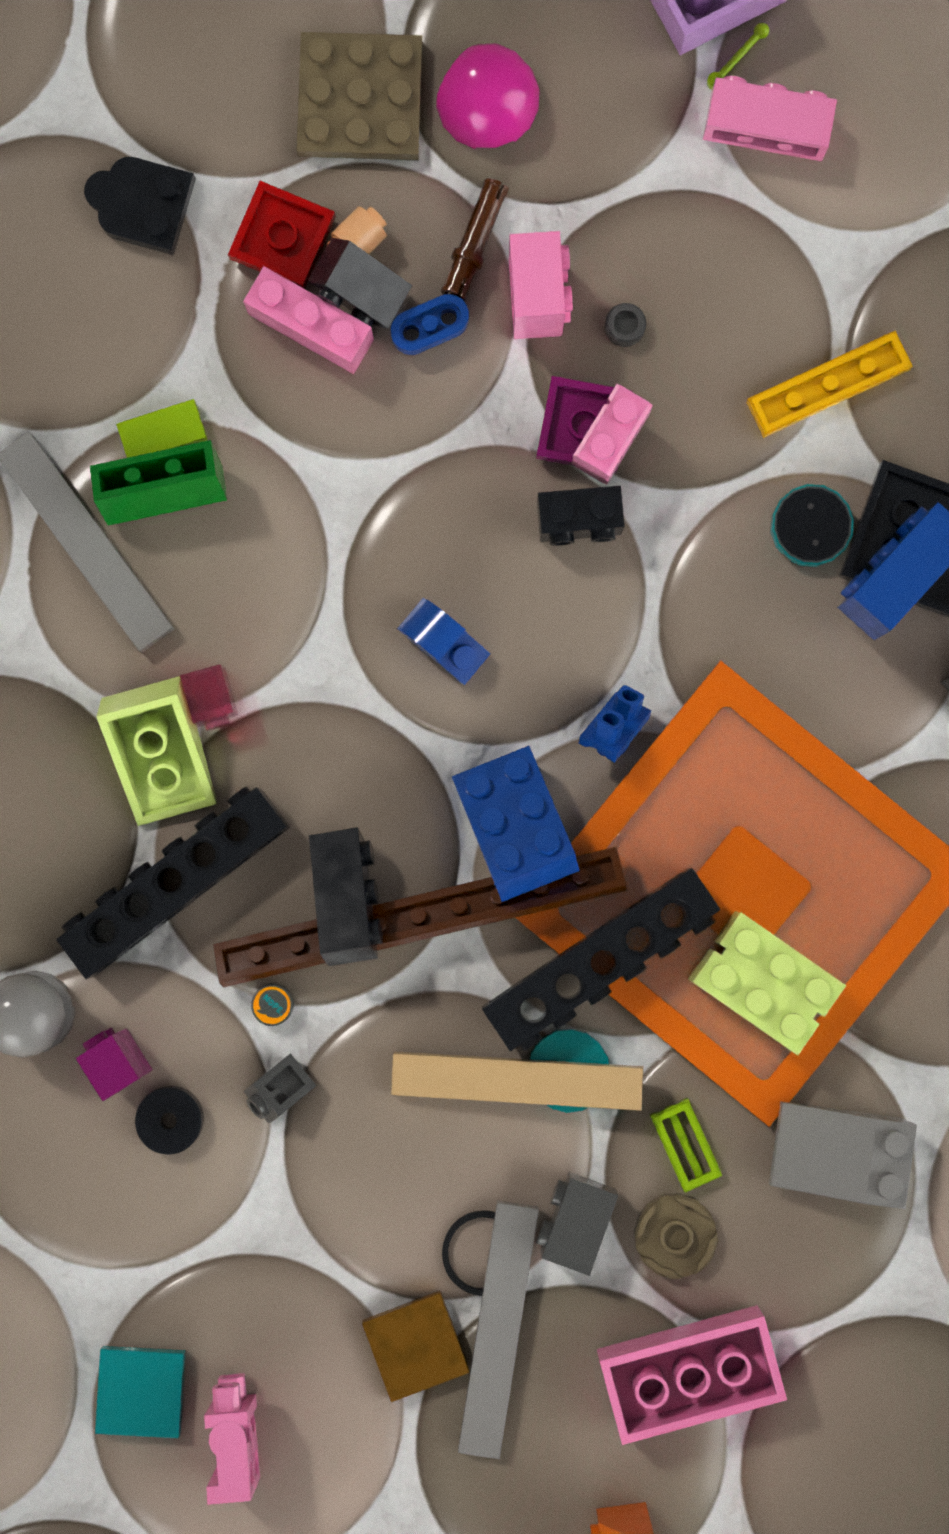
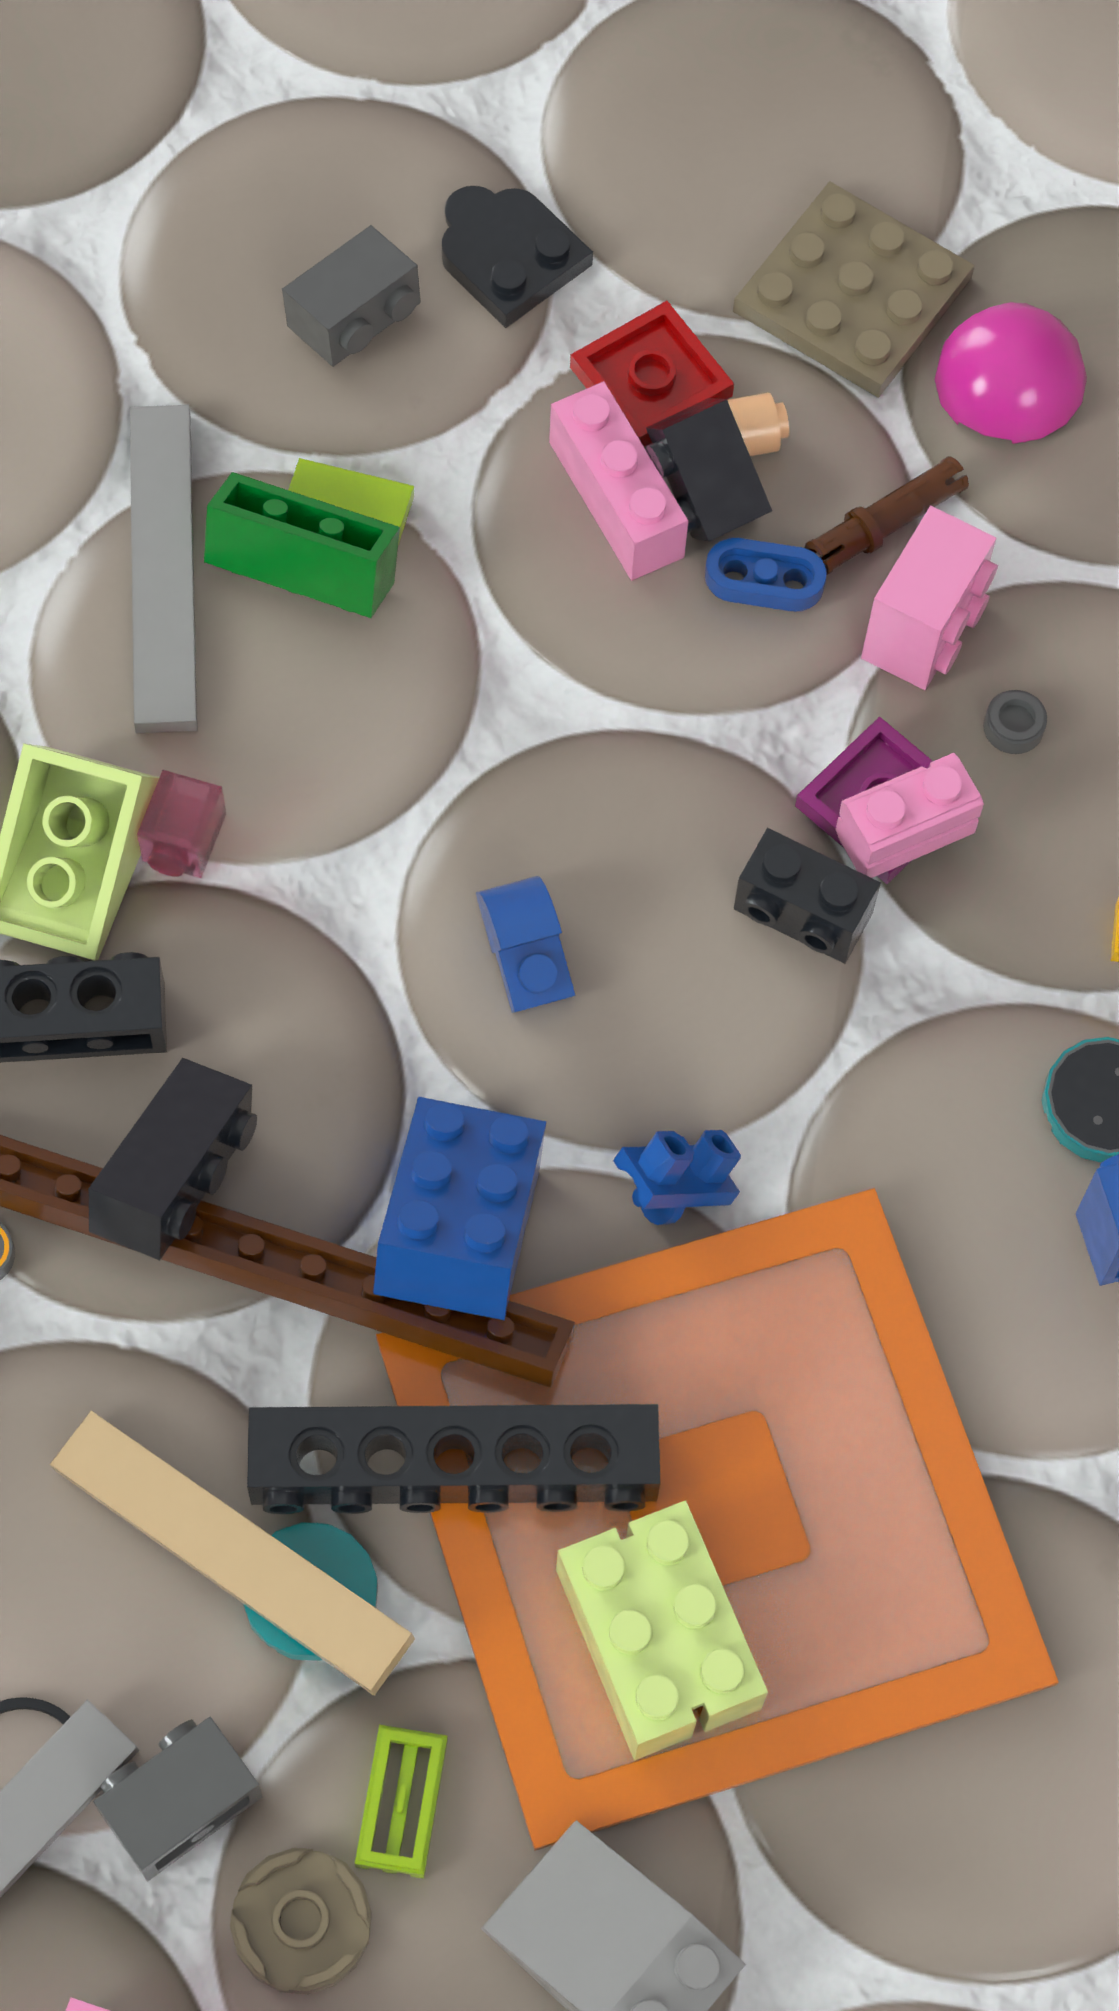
camera: 25 degrees right, 20 degrees down
(76, 299) = (352, 296): none -> dark grey brick

